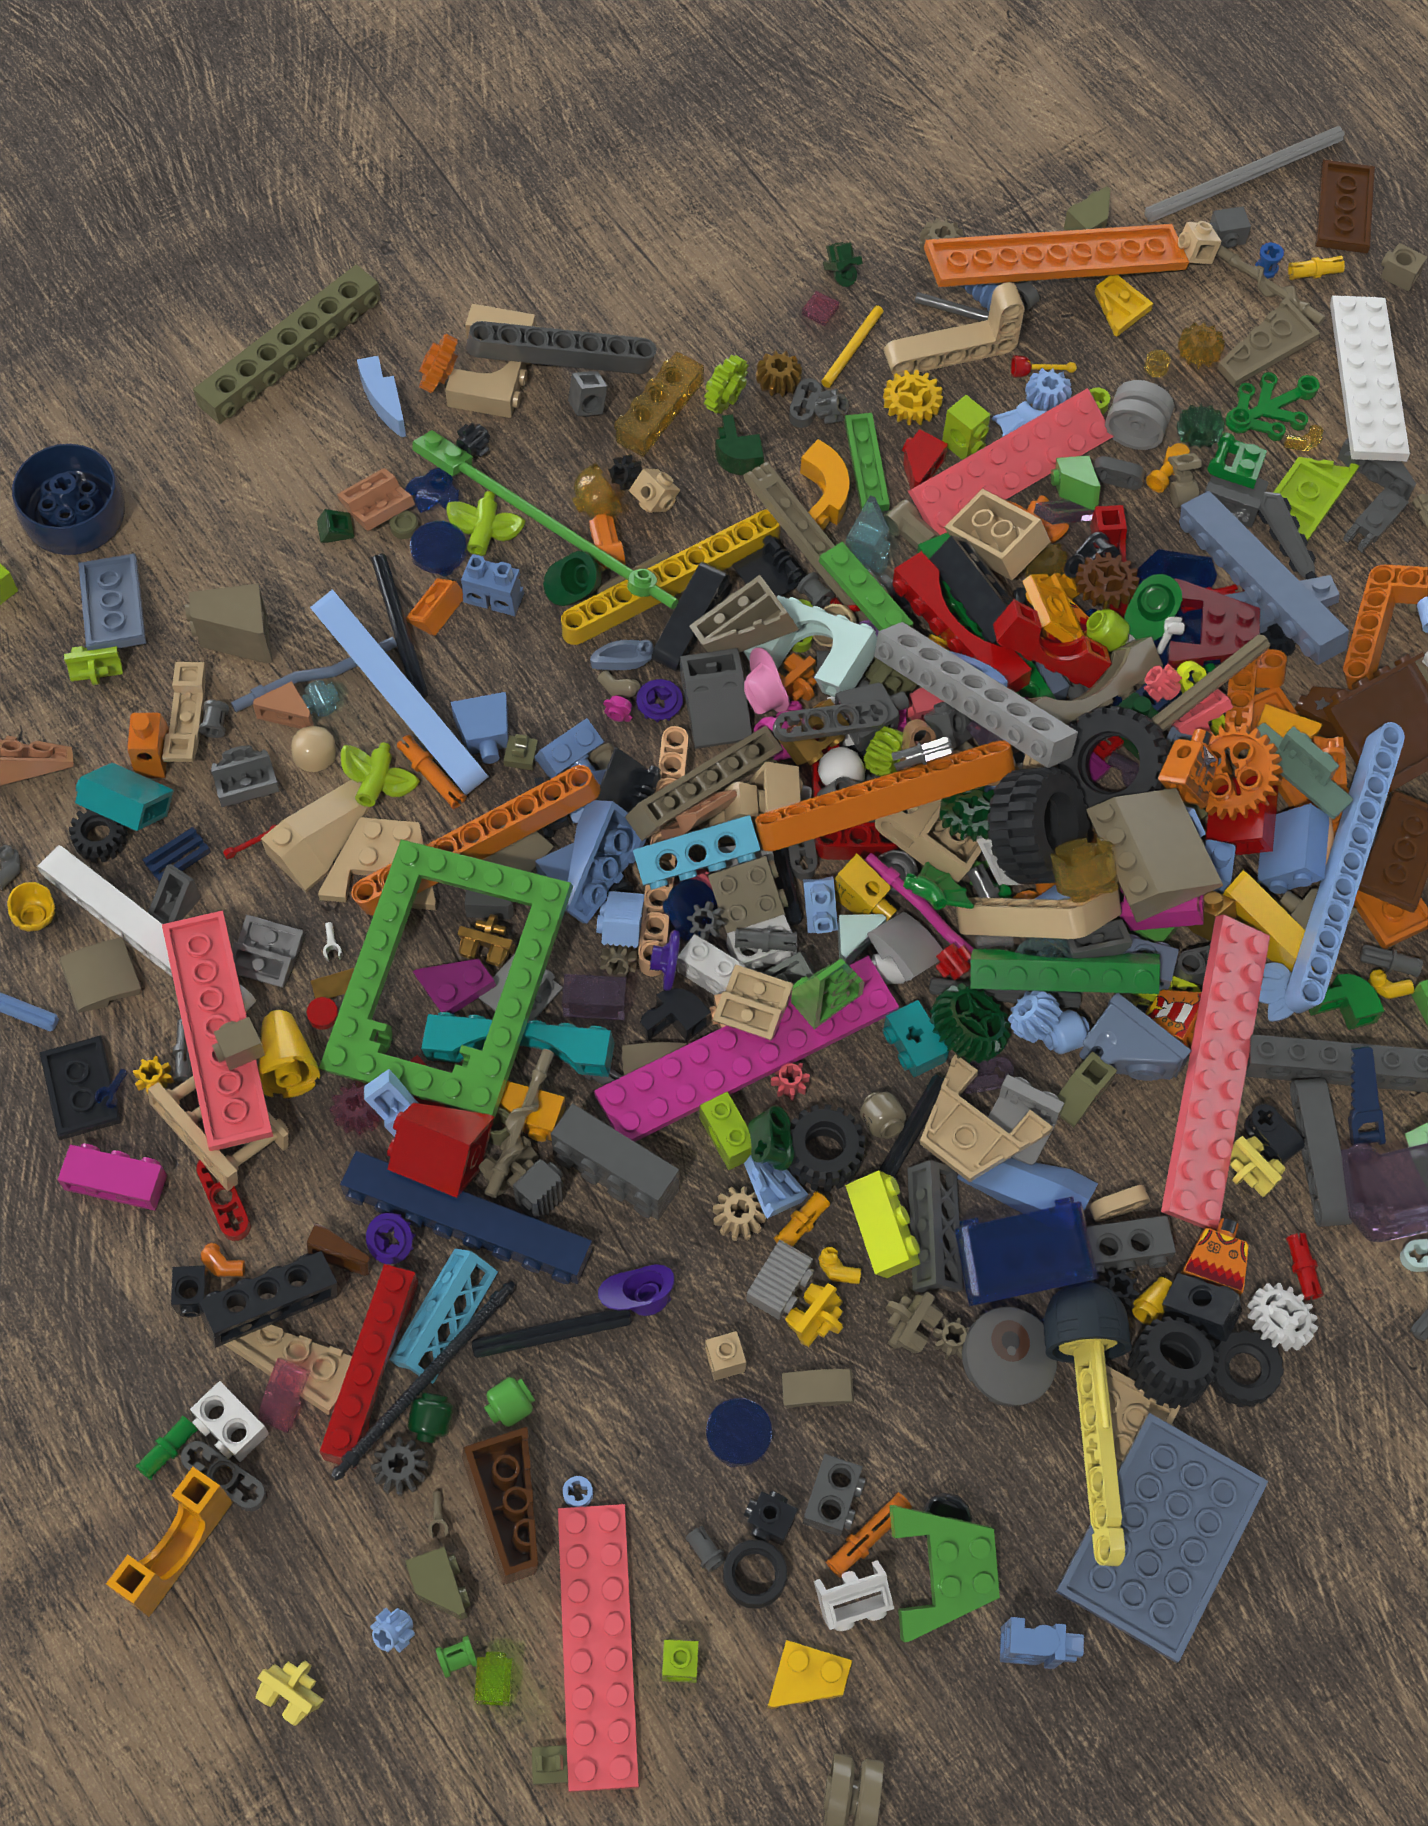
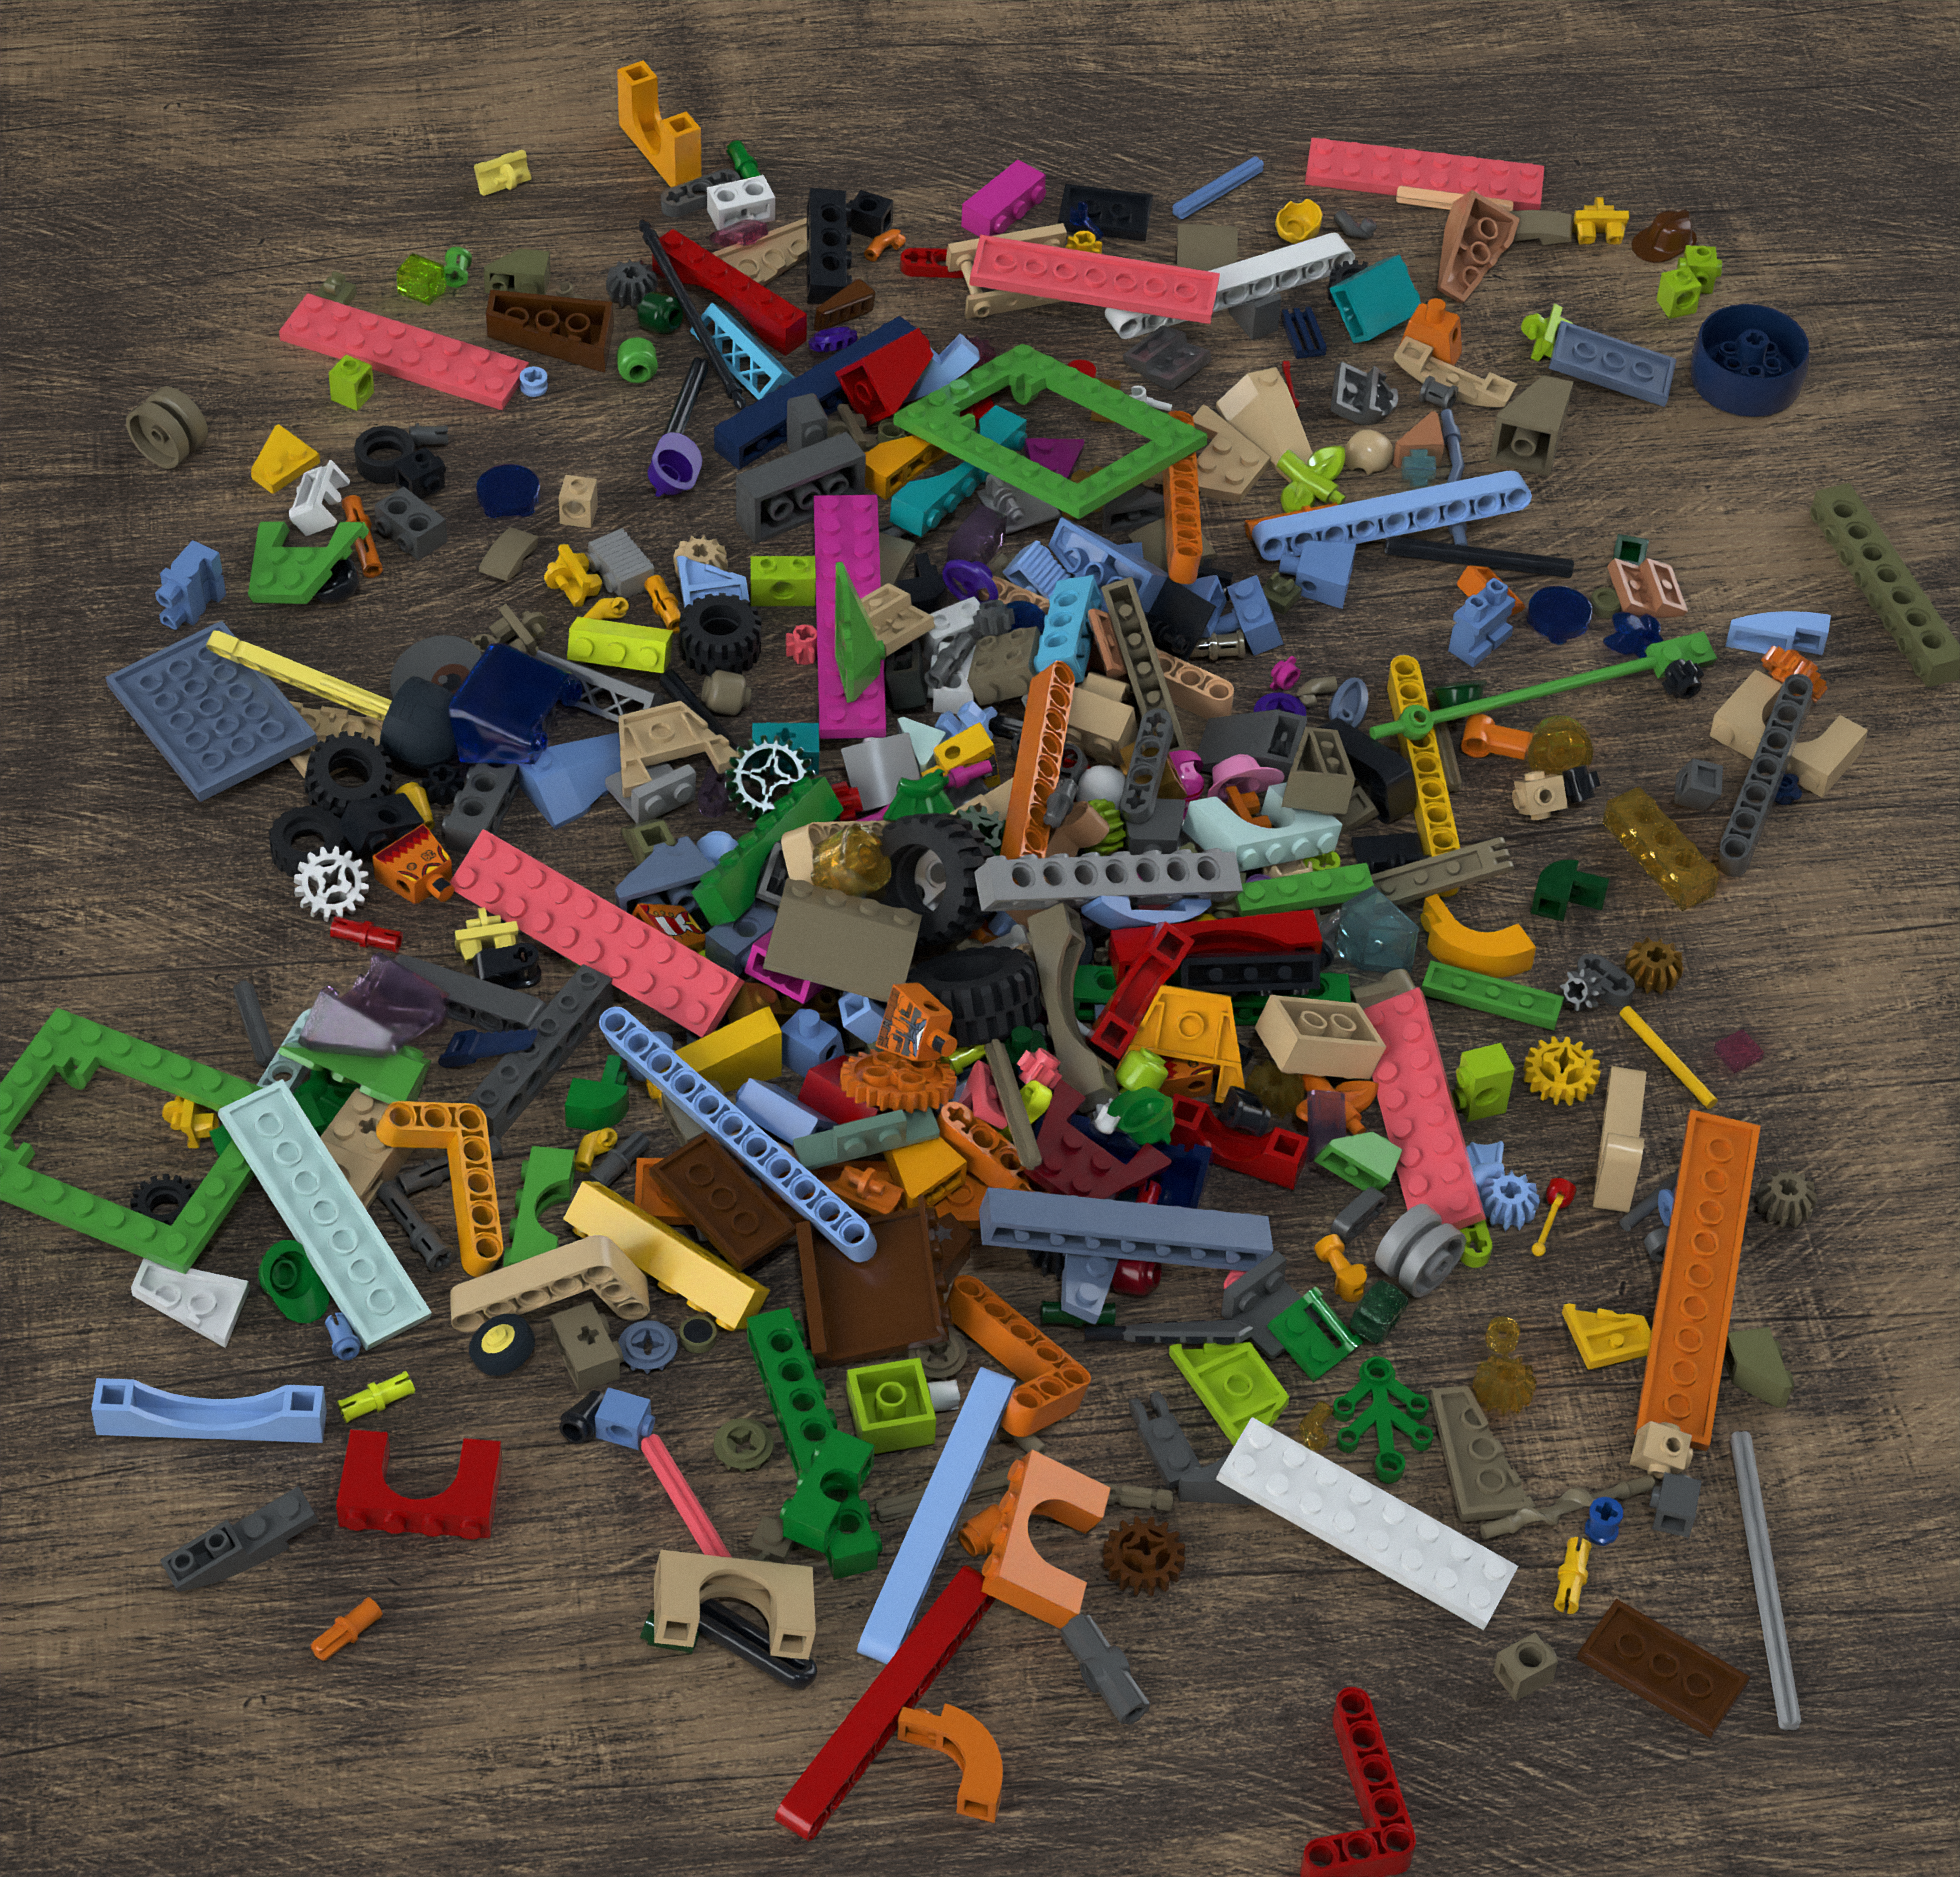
camera: 115 degrees right, 15 degrees down
(237, 1043) = (1063, 271): dark tan brick -> none
(287, 1062) = (1051, 325): yellow cone -> none
(392, 1630) = (503, 236): light blue gear -> none
(484, 523) = (1575, 656): lime plant -> none
(515, 1124) = (879, 431): dark tan piece -> none
(726, 384) = (1650, 896): lime gear -> none
(772, 1138) = (743, 581): dark green piece -> none
(842, 261) = (1787, 1079): dark green hips -> none
(922, 457) = (1462, 1032): red slope -> none
(1035, 1015) = (736, 818): light blue gear -> none
(1106, 580) = (1197, 1083): reddish brown gear -> none
(1119, 1203) = (523, 823): tan beam -> none
(1185, 486) = (1304, 1258): dark tan leg -> none

